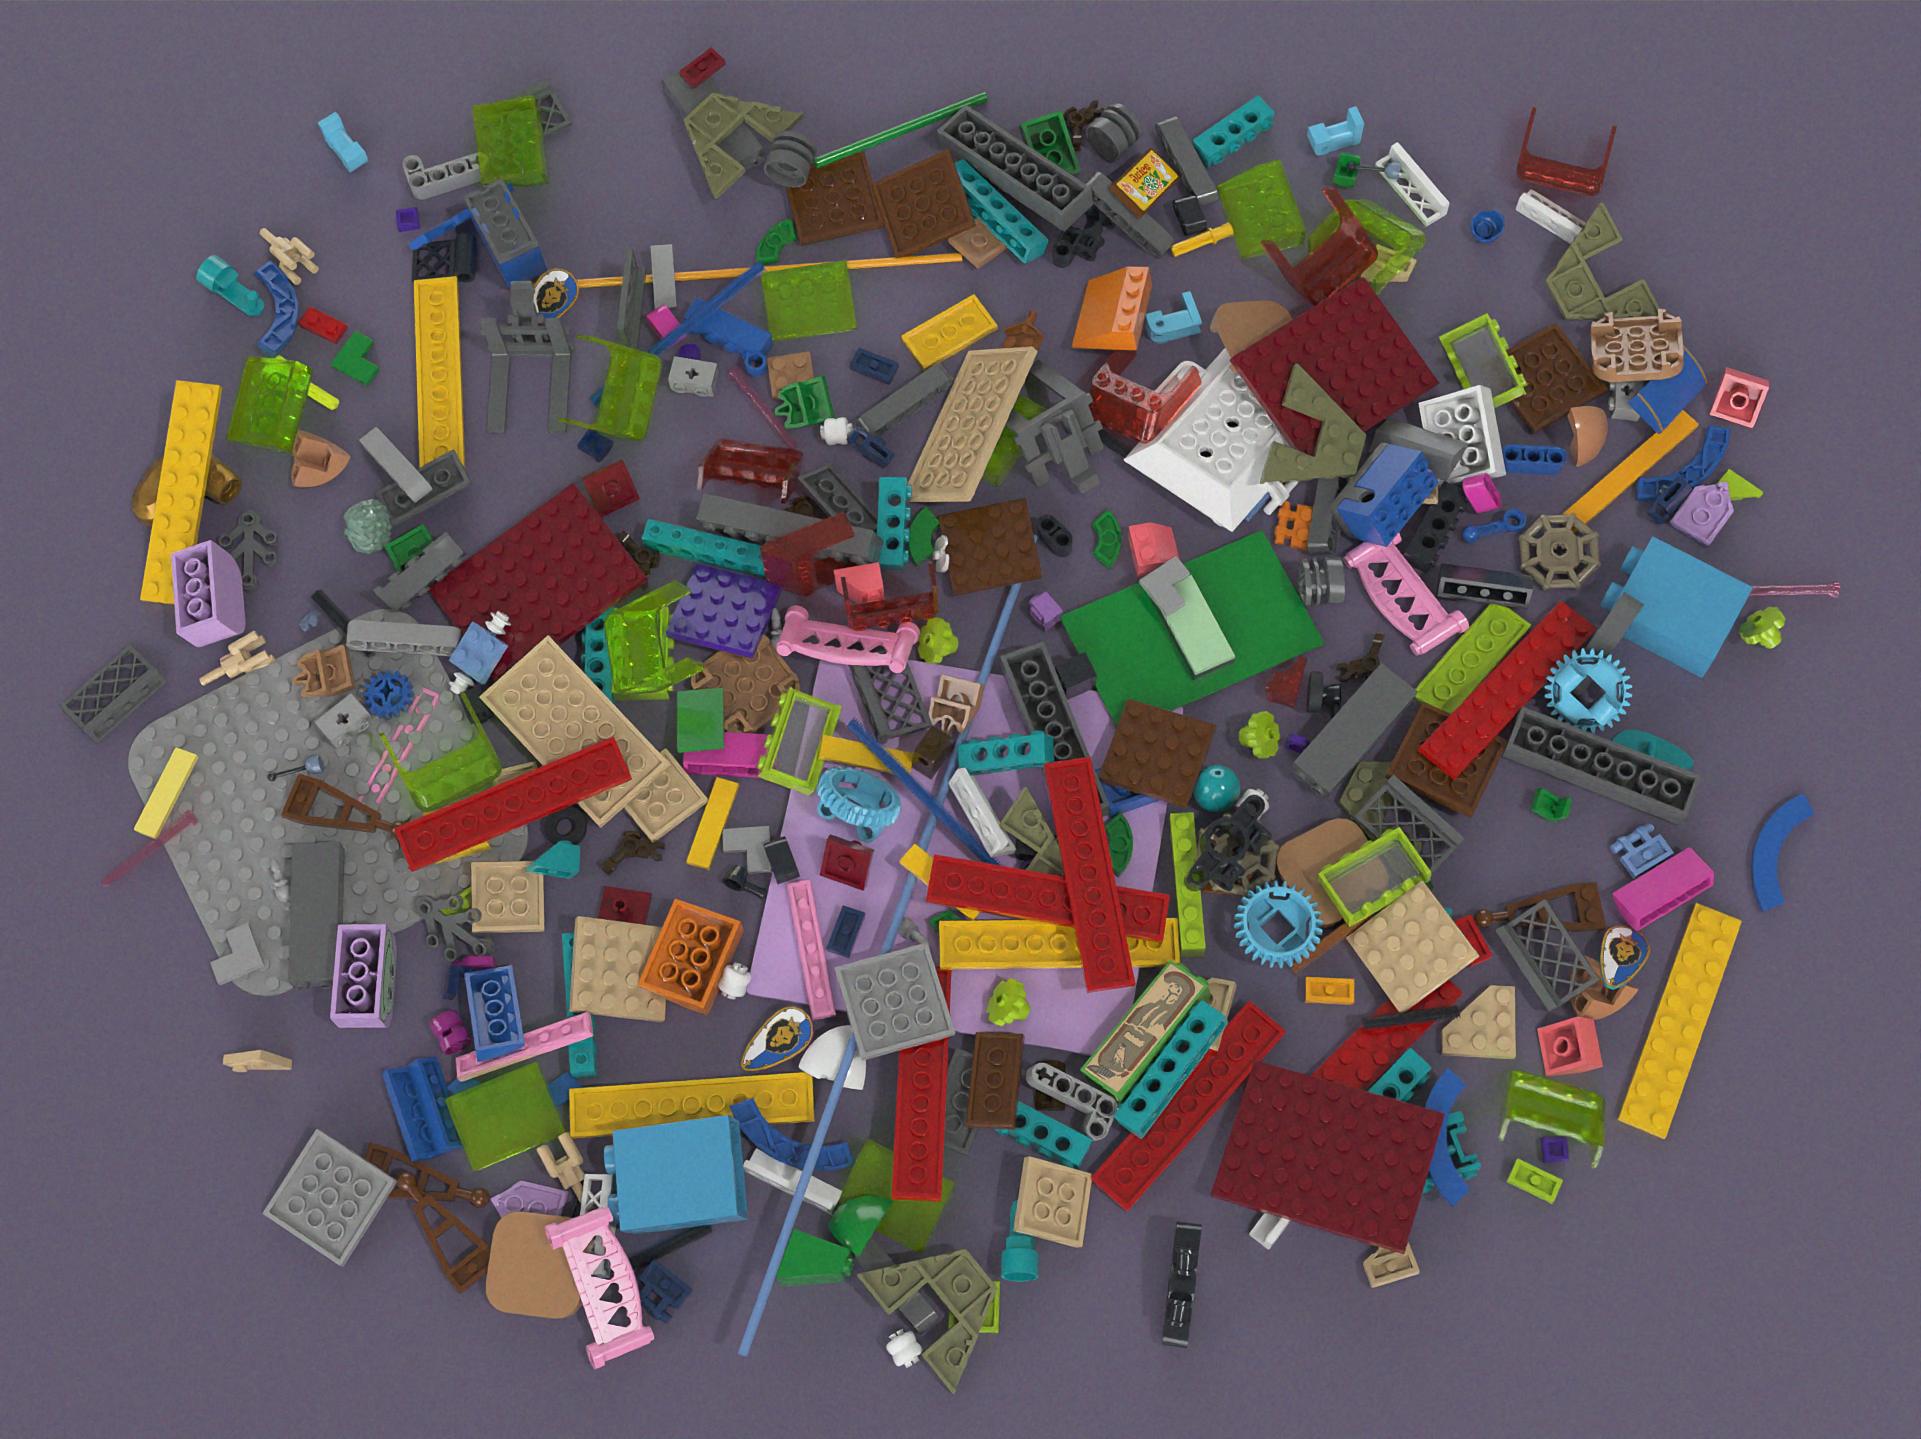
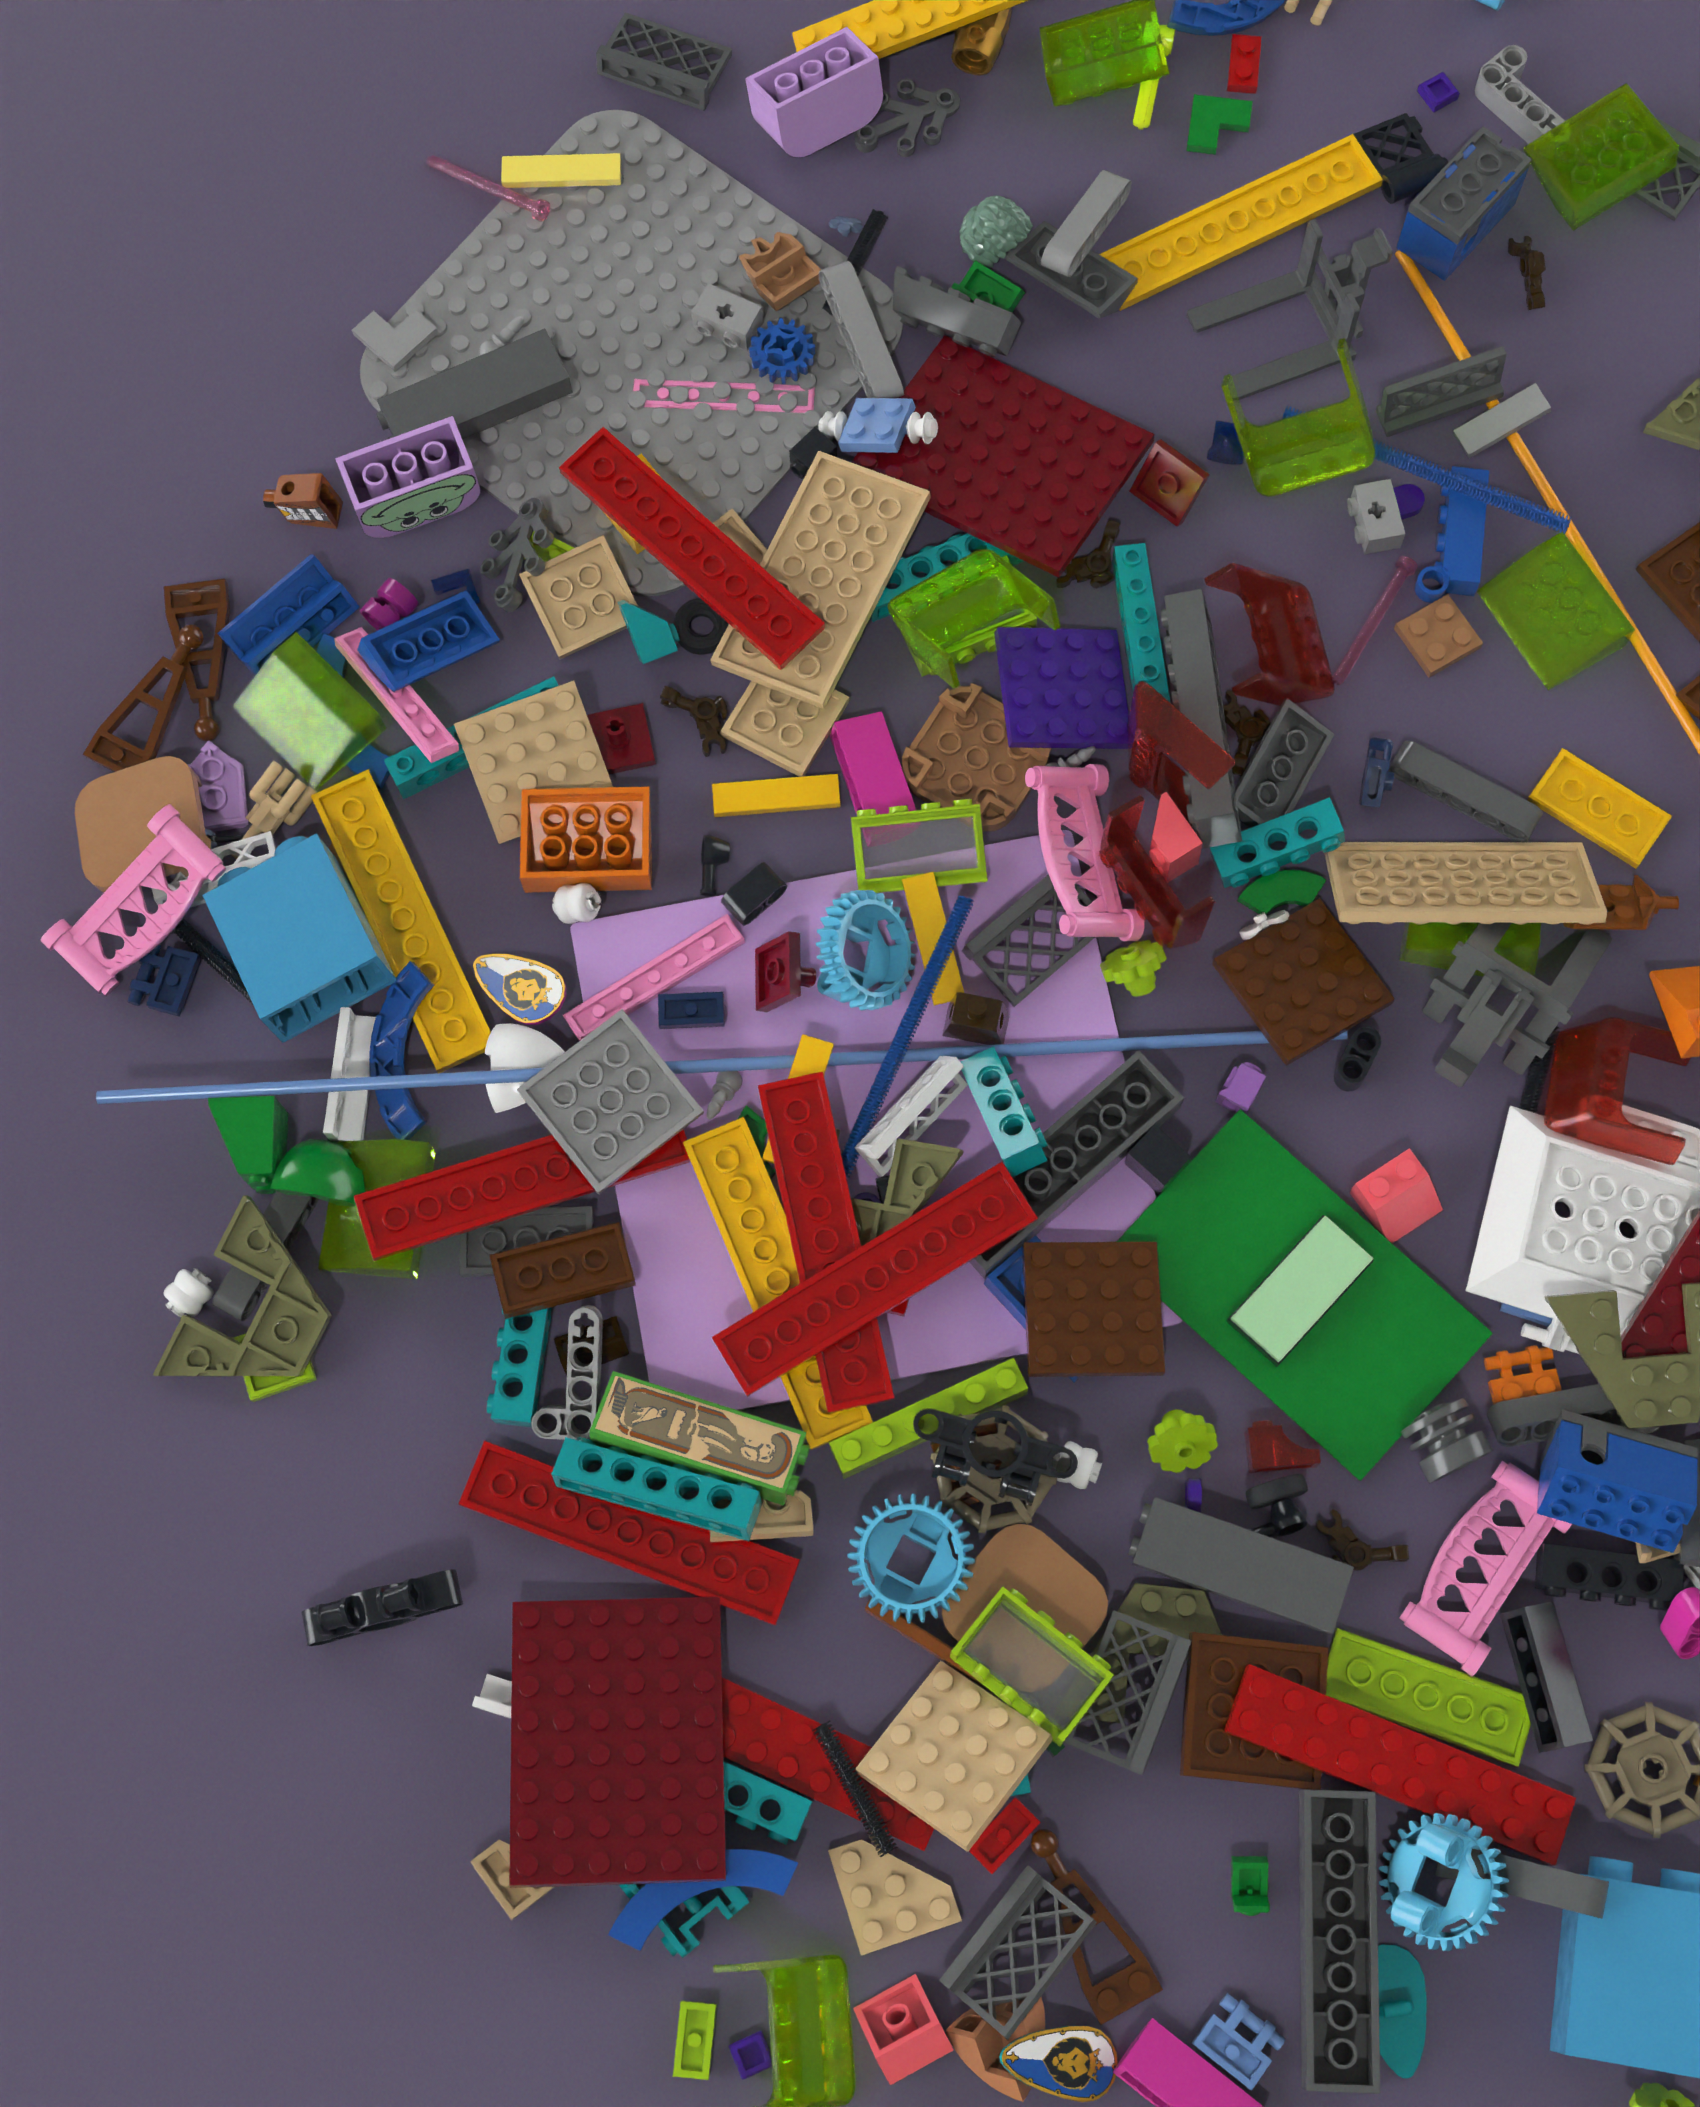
camera: 70 degrees right, 5 degrees up
(240, 659) = (761, 171): tan plant -> none
(256, 1061) = (274, 414): tan wing -> none
(303, 797) = (612, 317): reddish brown plate -> none
(313, 765) = (659, 310): hinge -> none
(315, 460) = (1057, 136): nougat brick -> none
(330, 1197) = (144, 564): light grey plate -> none
(337, 1063) = (305, 500): none -> dark orange torso
(444, 227) = (1446, 136): blue tile -> none
(452, 774) = (705, 463): clear neon green windscreen -> none
(477, 962) = (488, 601): magenta tile -> none
(555, 293) = (1405, 299): shield -> none
(567, 215) = (1531, 267): none -> dark brown piece
(662, 322) = (1437, 447): dark pink beam -> none
(700, 720) = (900, 720): green tile -> none
(750, 841) = (770, 847): light grey tile -> none
(774, 241) = (1624, 534): green tile -> none
(805, 403) = (1402, 668): green plate -> none
(836, 431) = (1380, 720): white piece -> none
(874, 366) = (1500, 731): dark blue plate -> none
(955, 703) = (1054, 1022): medium nougat plate -> none
(1008, 1003) = (668, 1247): lime plant -> none
(1019, 1259) = (355, 1387): teal piece -> none
(1053, 1202) = (431, 1403): tan plate -> none
(1109, 539) = (1386, 1134): green tile -> none
(1120, 843) = (950, 1310): green tile -> none
(1160, 585) = (1337, 1220): light grey tile -> none
(1217, 788) = (1078, 1408): teal piece -> none
(1329, 990) = (856, 1664): light orange plate -> none
(1473, 533) = (1624, 1631): blue piece -> none

